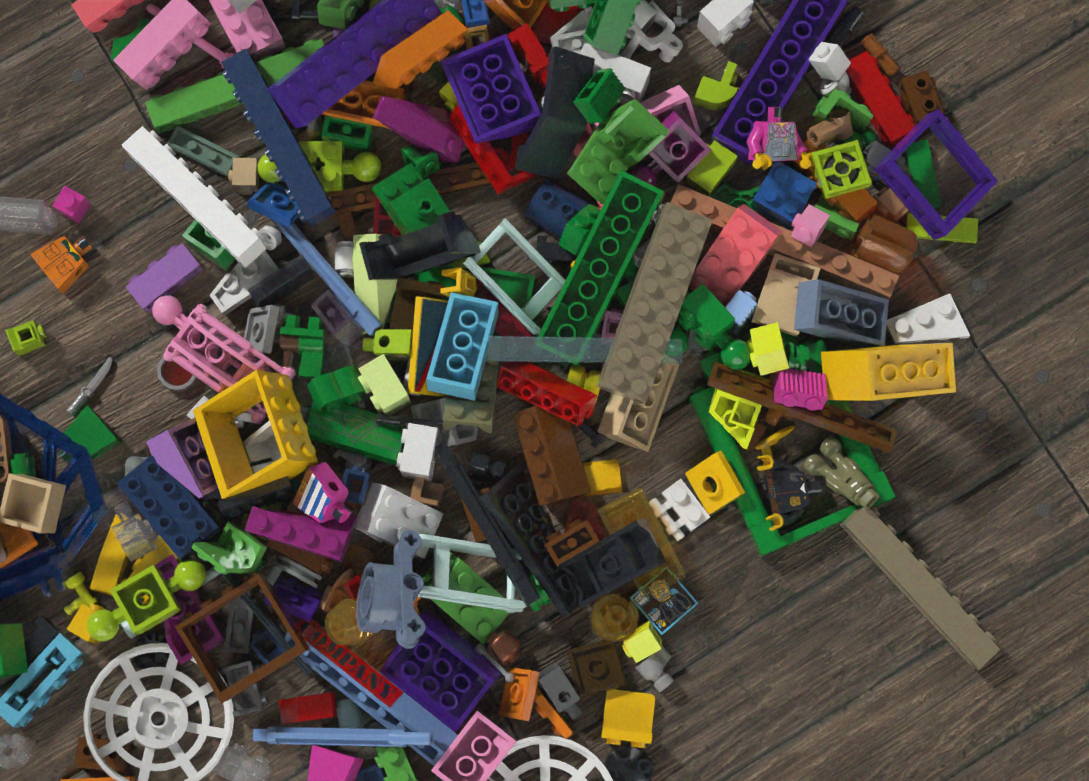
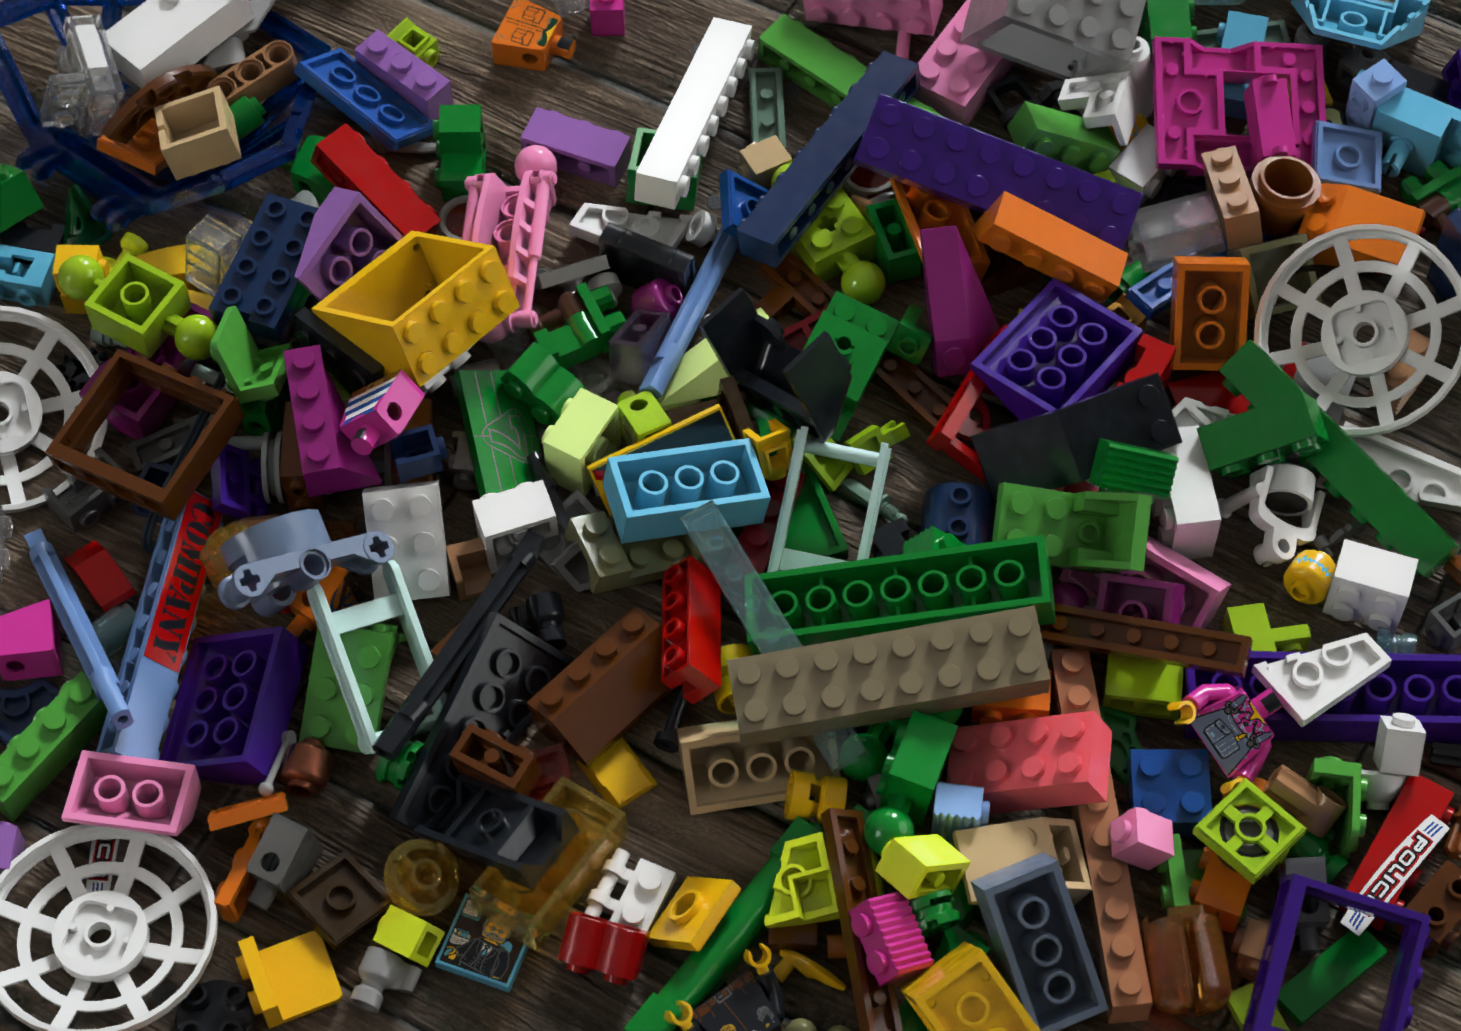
camera: 60 degrees right, 20 degrees down
(47, 354) = (405, 74): none -> medium lavender brick
(49, 608) = (79, 225): none -> dark green tile
(53, 386) = (365, 99): none -> blue tile
(127, 347) = (459, 147): none -> green brick
(131, 415) = (354, 166): none -> red brick
(308, 291) = (658, 296): none -> magenta head
(476, 221) = (871, 439): none -> lime plate
(510, 244) = (863, 494): none -> sand green piece
(682, 380) = (828, 791): none -> yellow wheel
(697, 40) = (1309, 576): none -> yellow head
(703, 150) = (1149, 640): none -> reddish brown plate
(706, 540) = (604, 947): none -> red brick
(763, 25) = (1387, 641): none -> clear light blue wheel
(772, 75) = (1321, 678): none -> white wing
(892, 106) = (1397, 869): none -> white sticker

